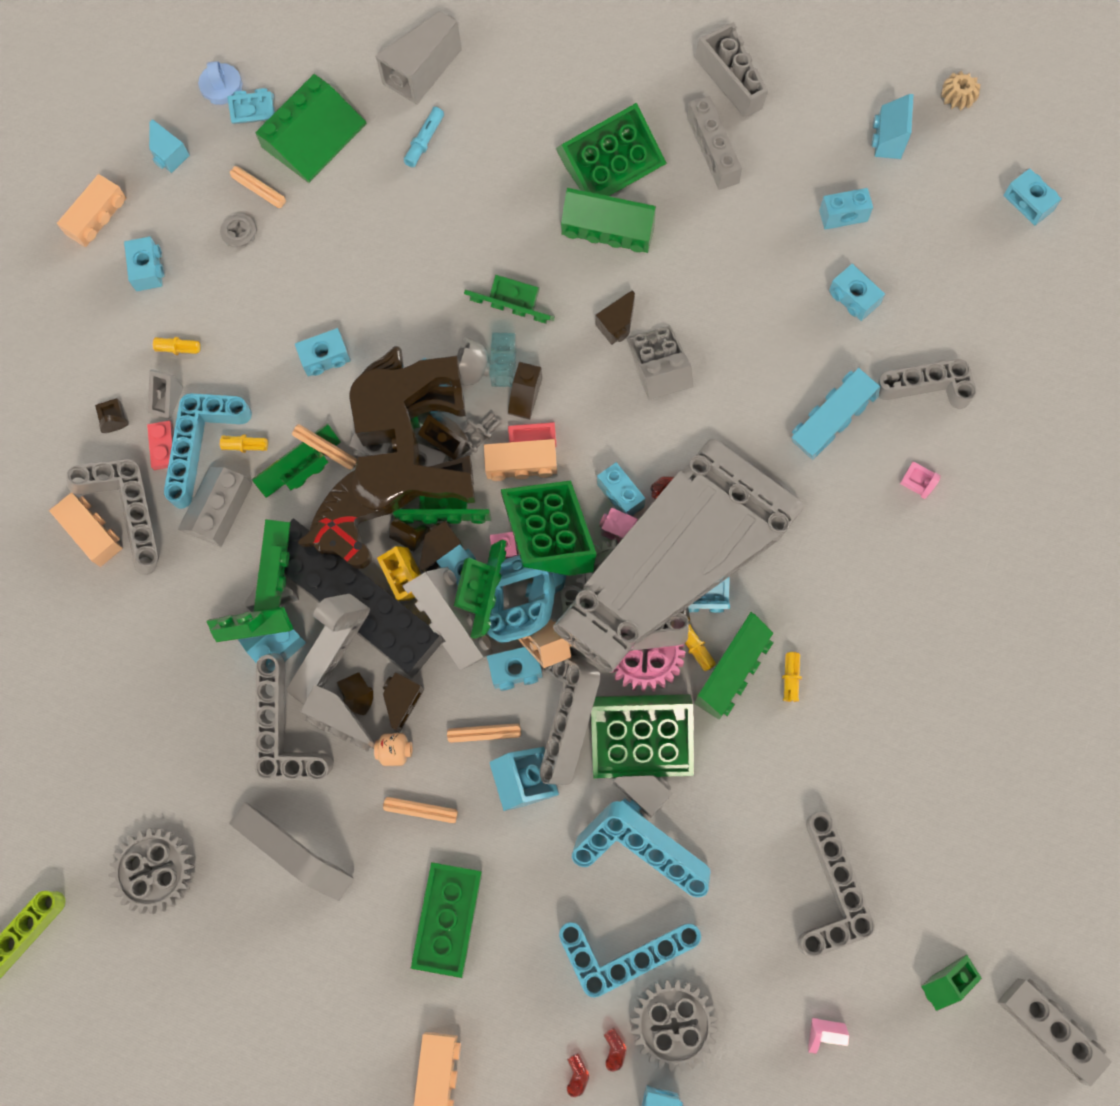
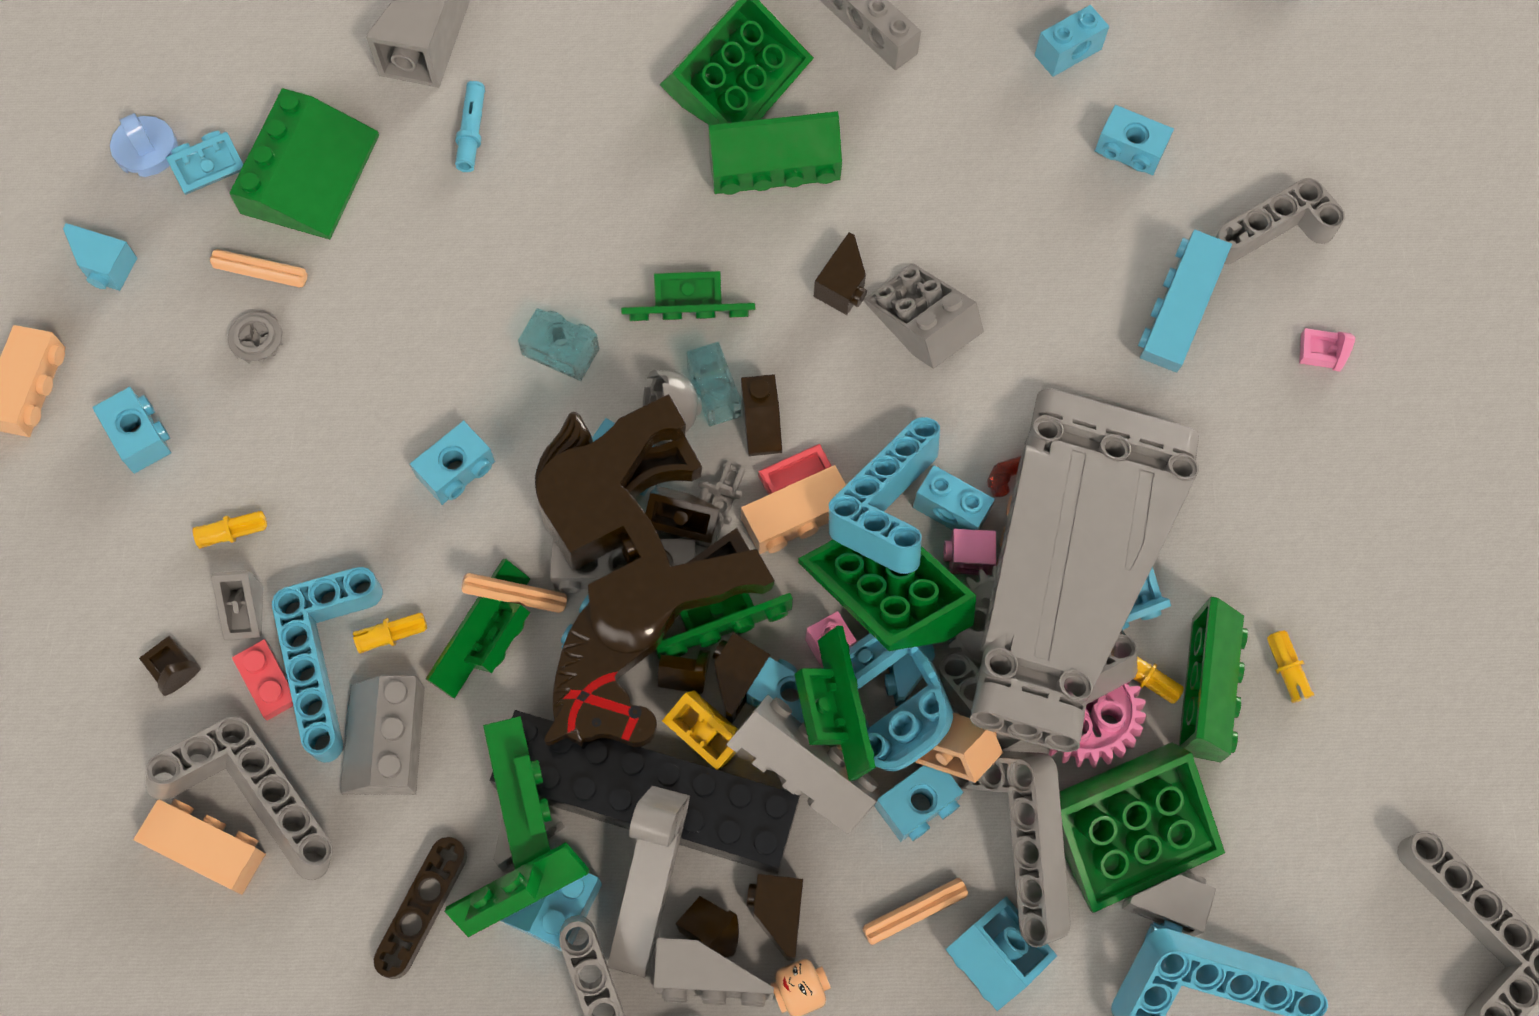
camera: 30 degrees left, 5 degrees down
(198, 617) = (415, 904): none -> dark brown beam
(425, 310) = (569, 358): none -> clear light blue brick
(551, 472) = (858, 509): none -> medium azure beam

